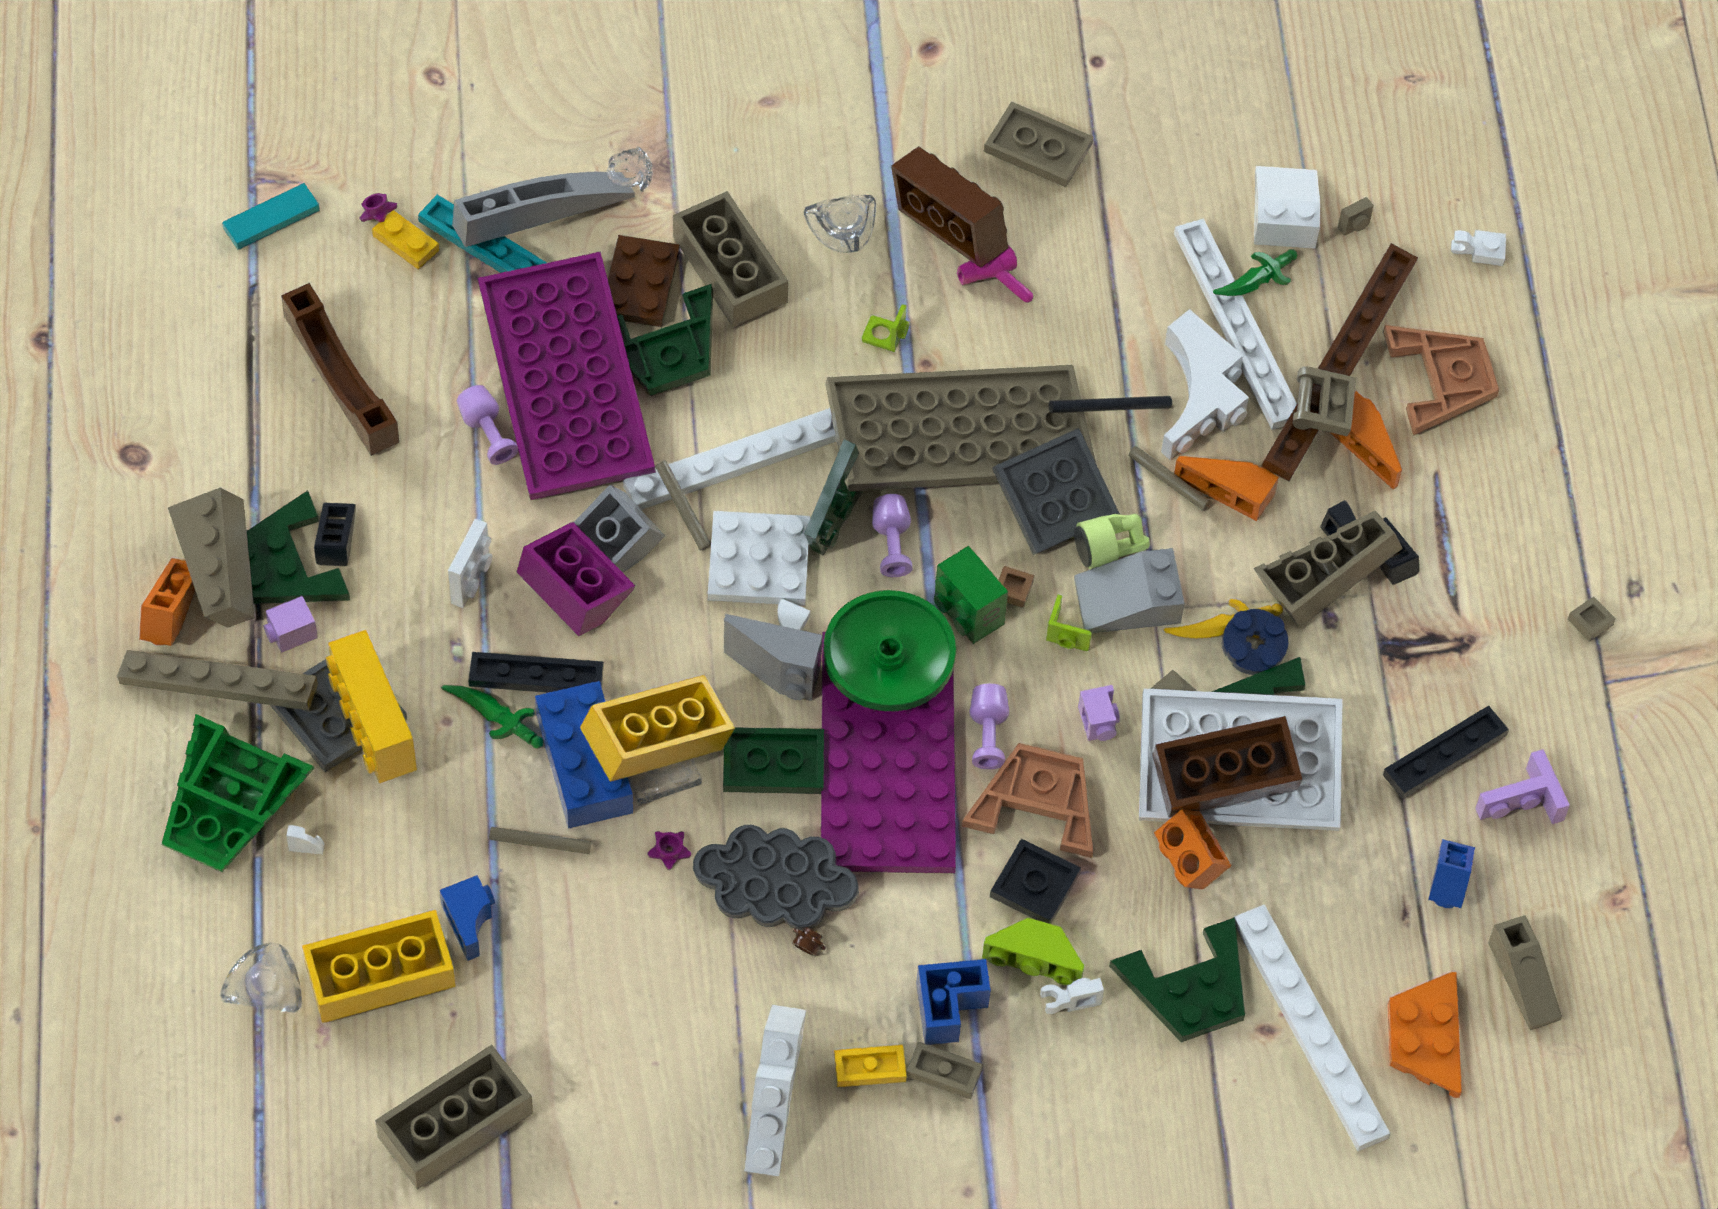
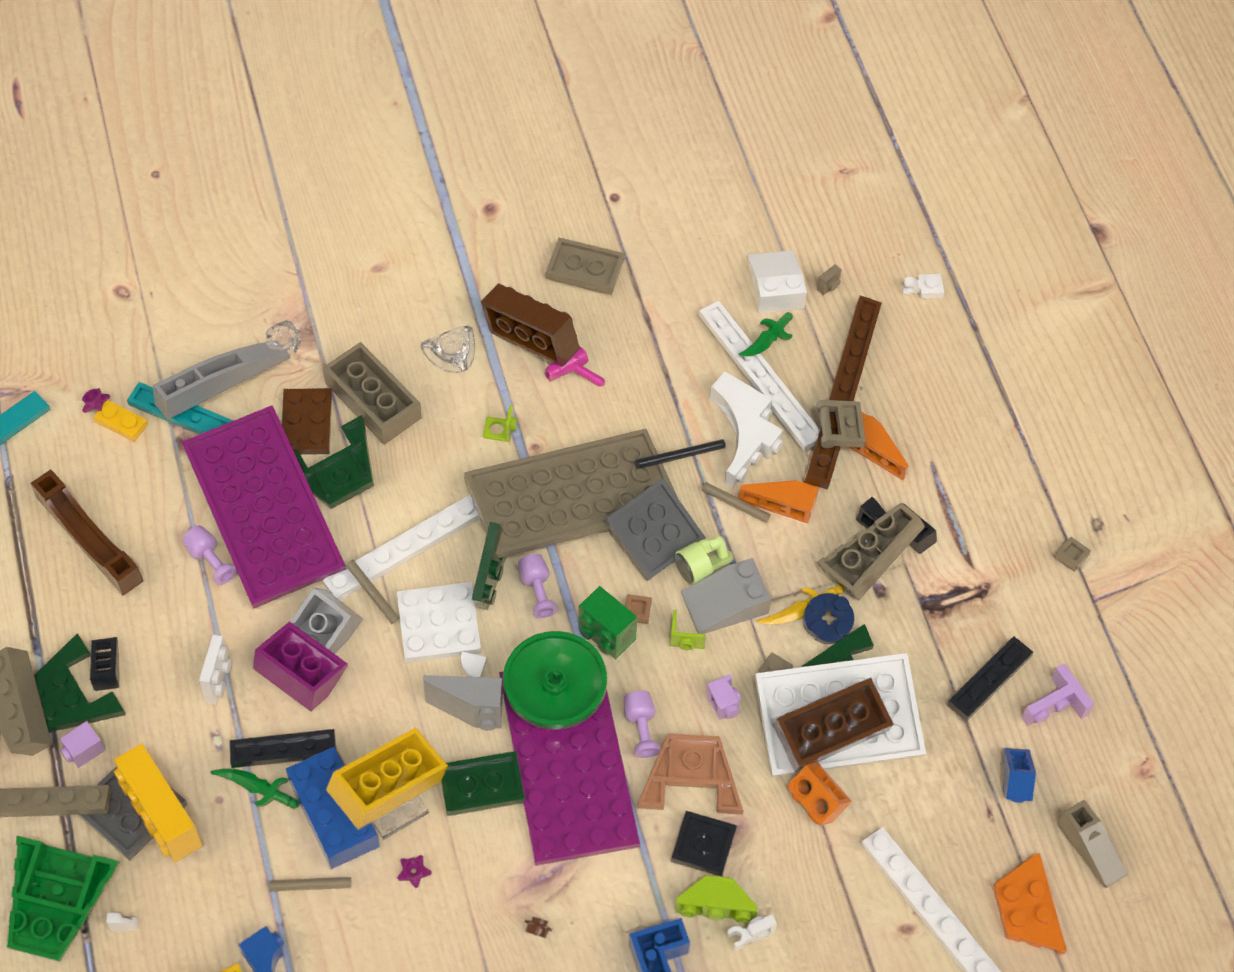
camera: 10 degrees left, 0 degrees up
(775, 877) = (502, 879): dark grey plate -> none
(1195, 997) = (846, 912): dark green wing -> none
(1456, 370) = (928, 381): nougat wing -> none

